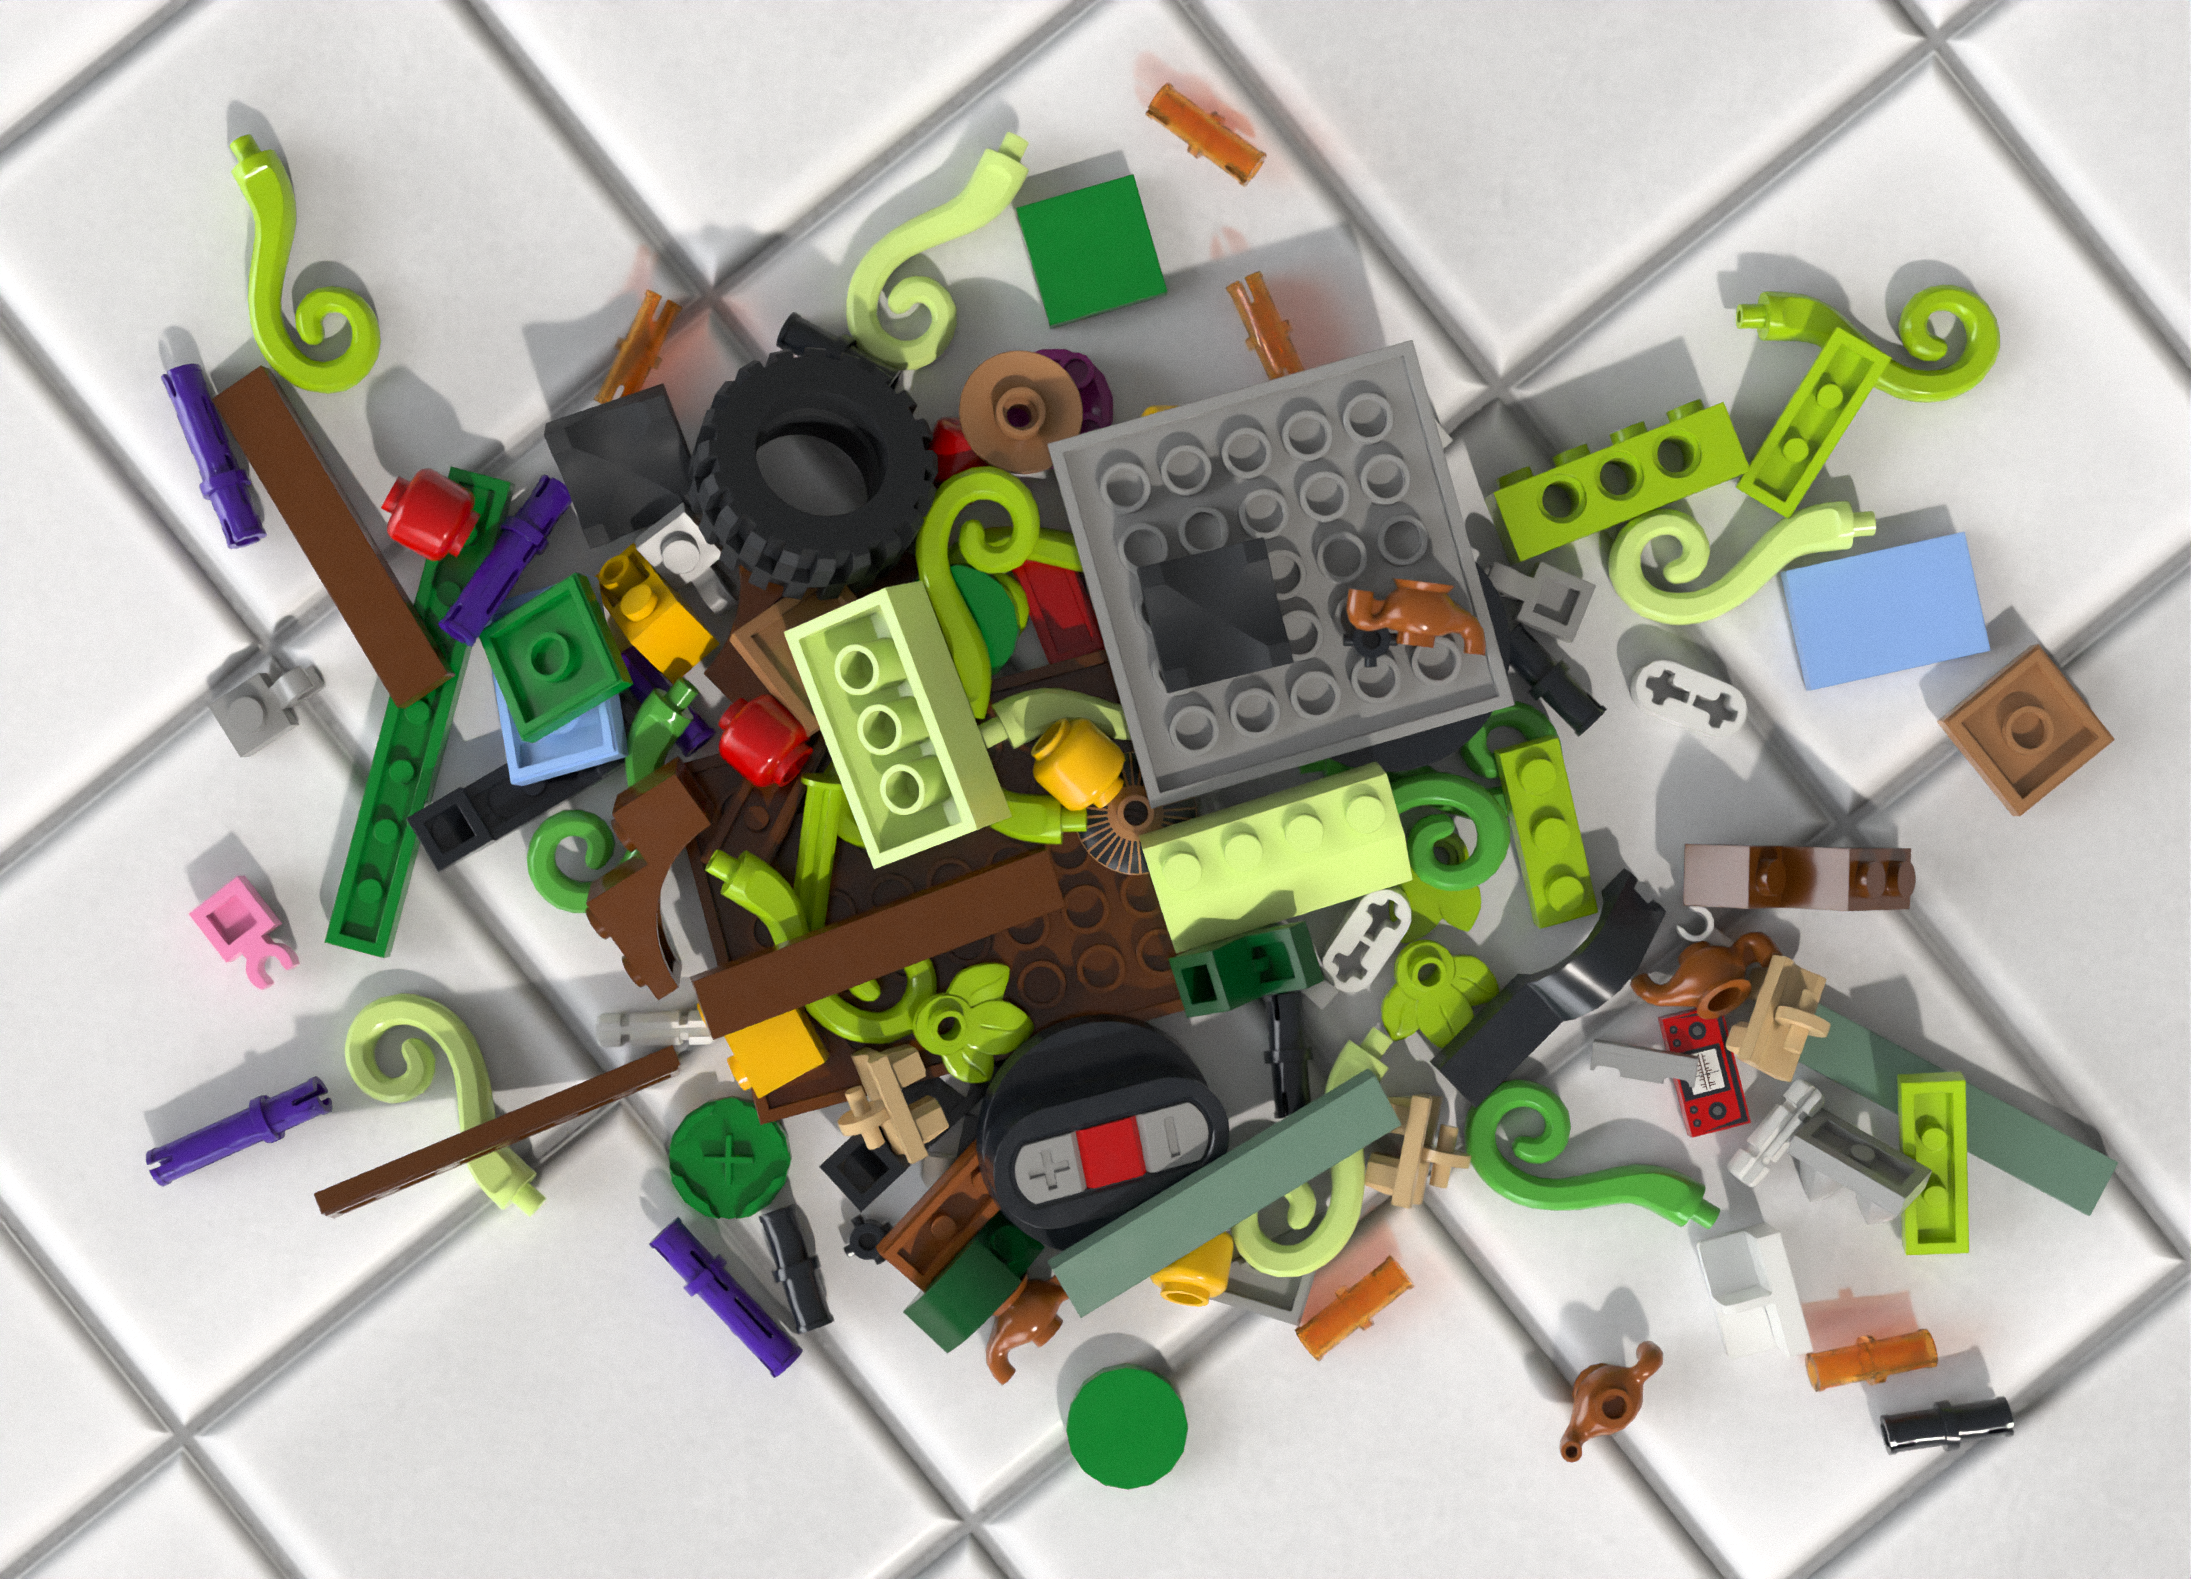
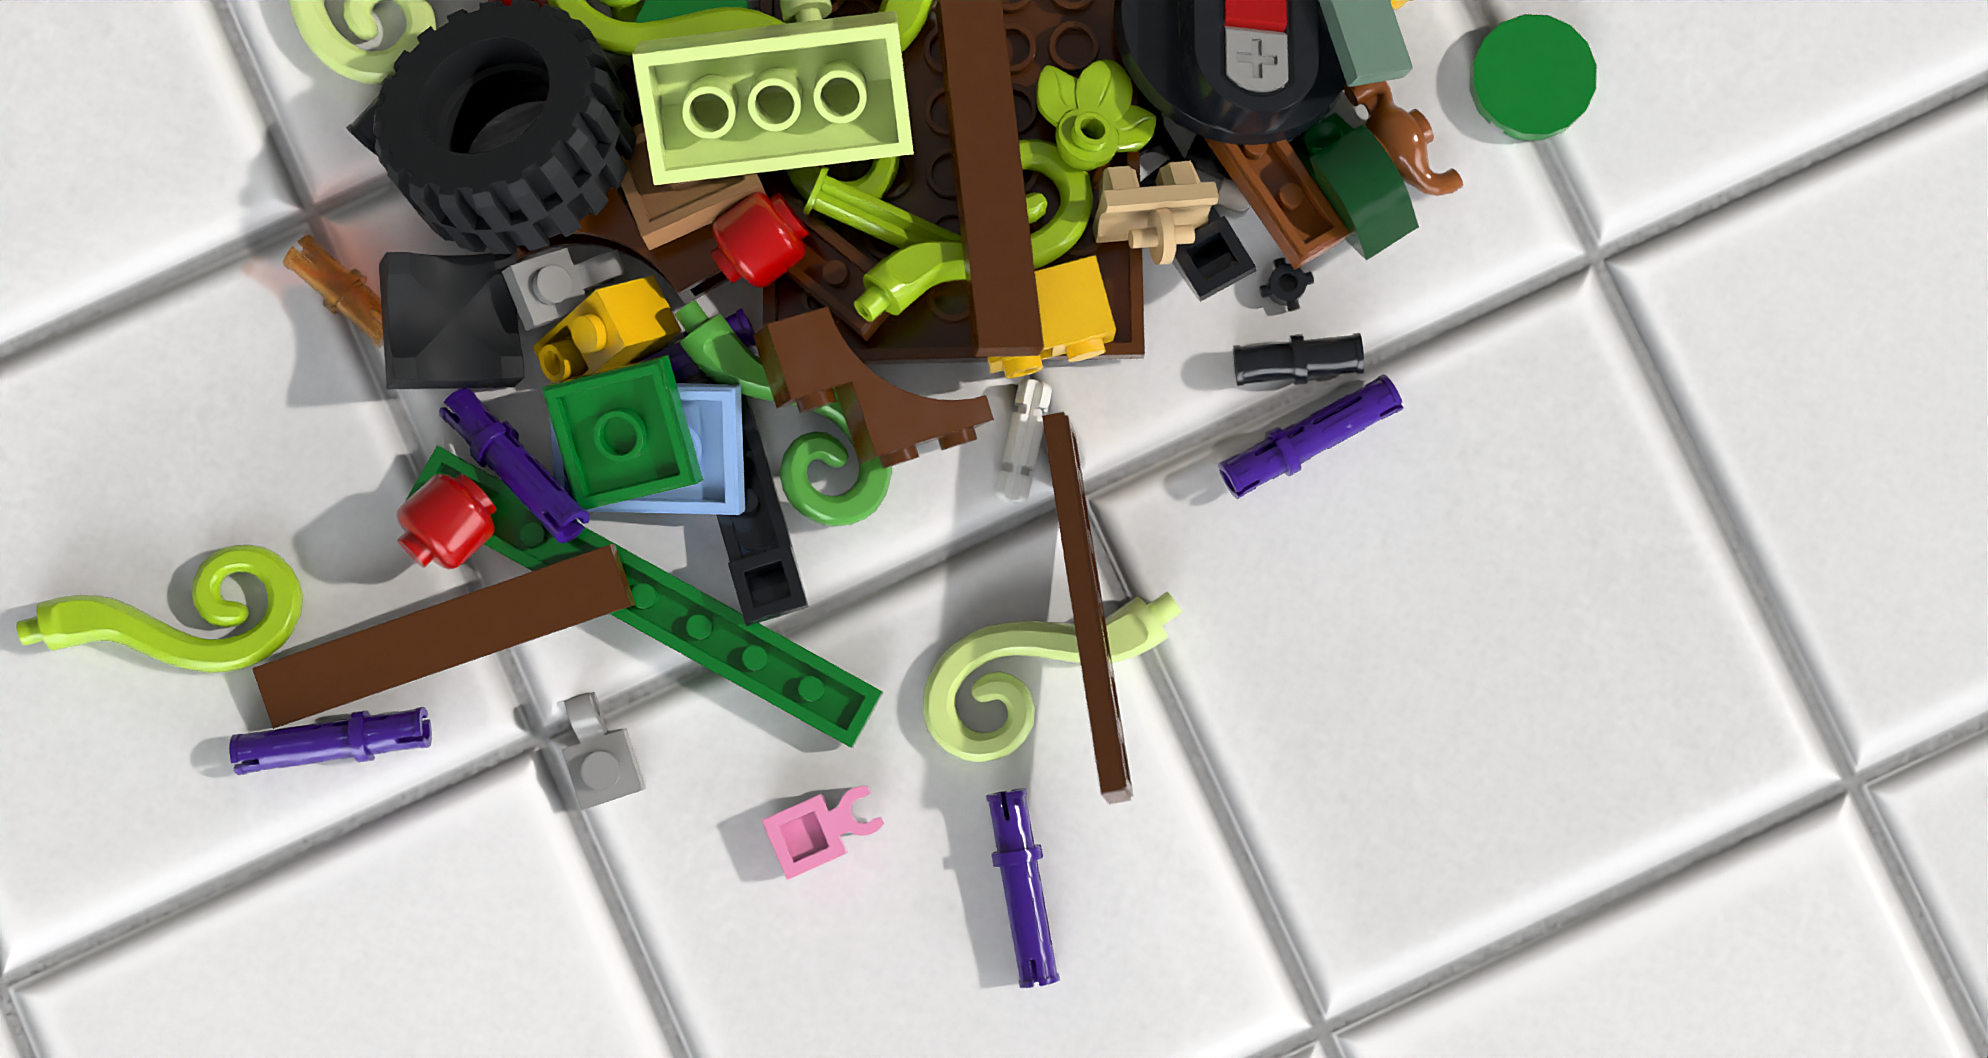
camera: 80 degrees left, 5 degrees down
(727, 1160) = (1172, 402): green tile -> none

